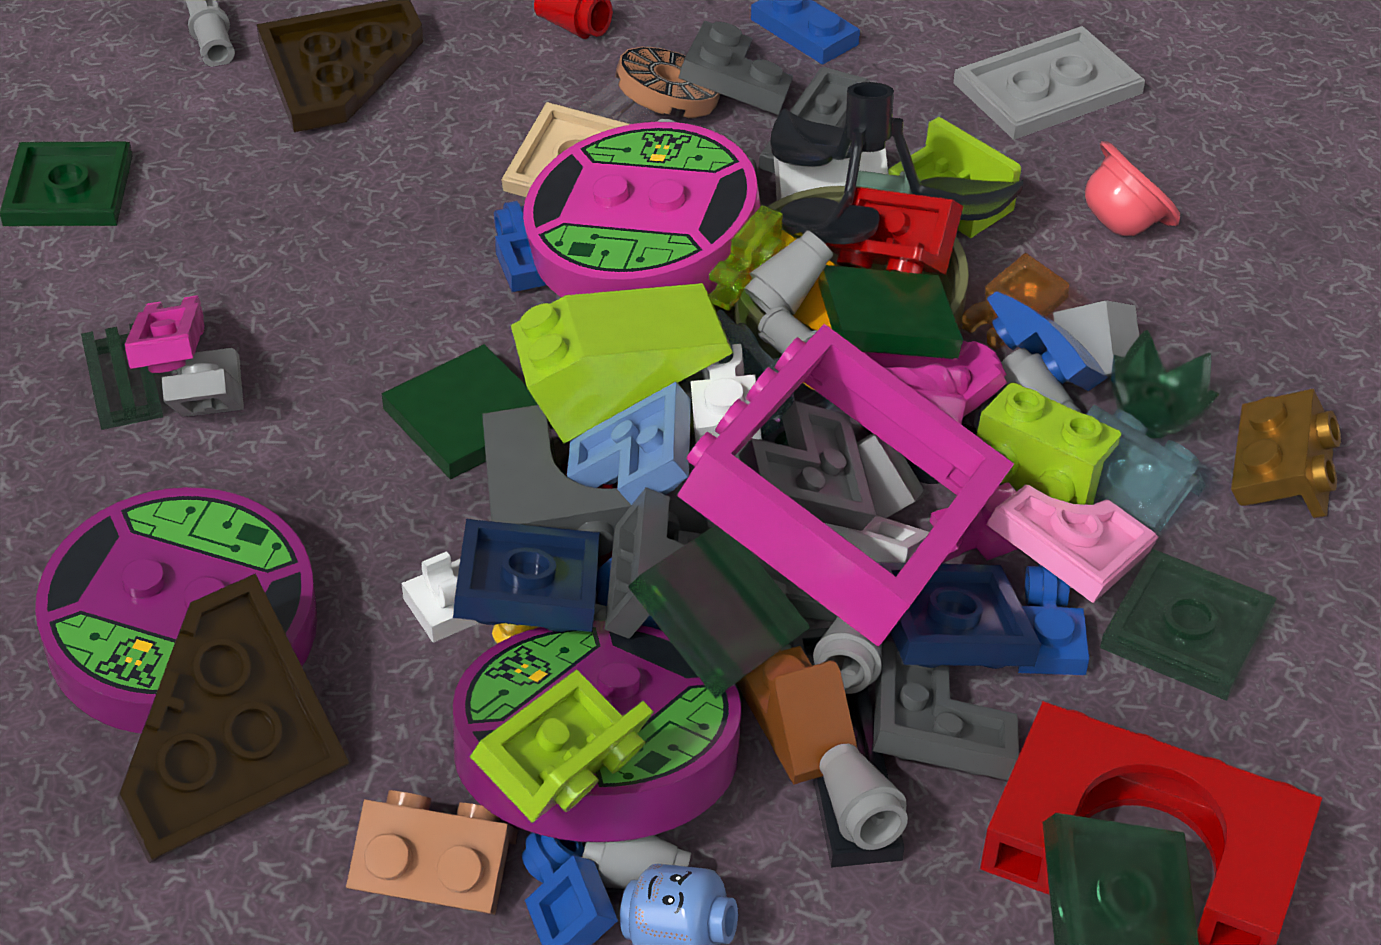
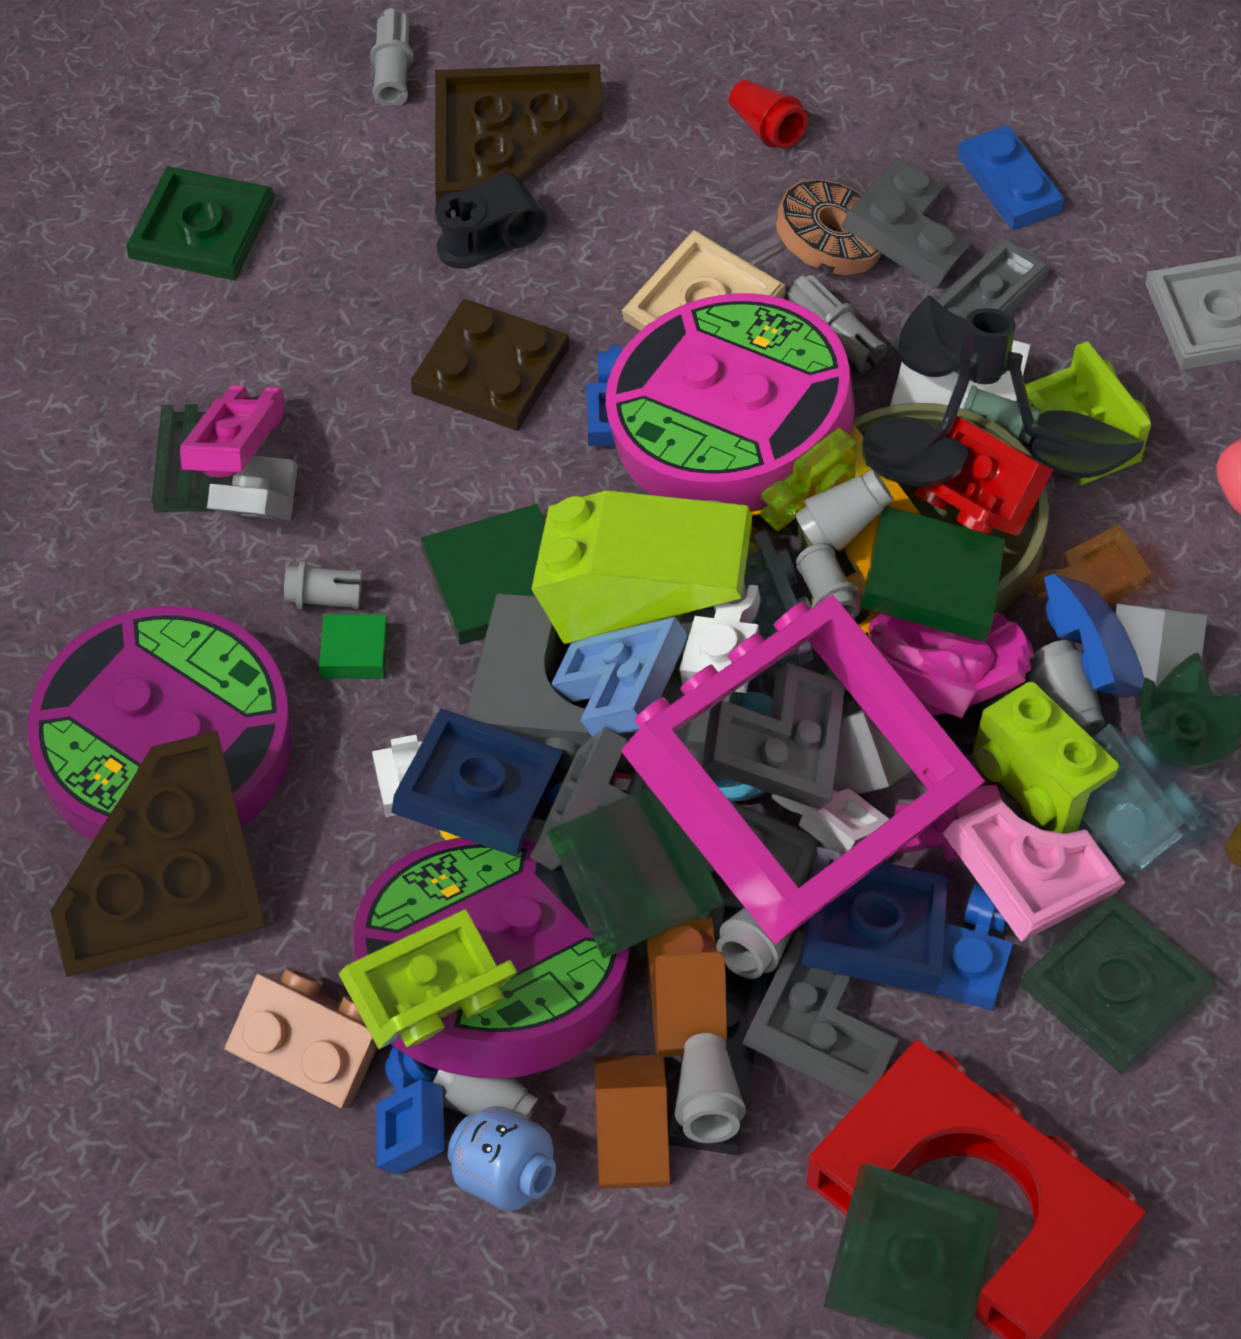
camera: 20 degrees right, 10 degrees up
(298, 453) = (322, 586): none -> light grey pin
(347, 500) = (353, 646): none -> green tile
(349, 132) = (493, 216): none -> black piece
(392, 245) = (490, 364): none -> dark brown plate
(792, 852) = (631, 1122): none -> dark orange slope

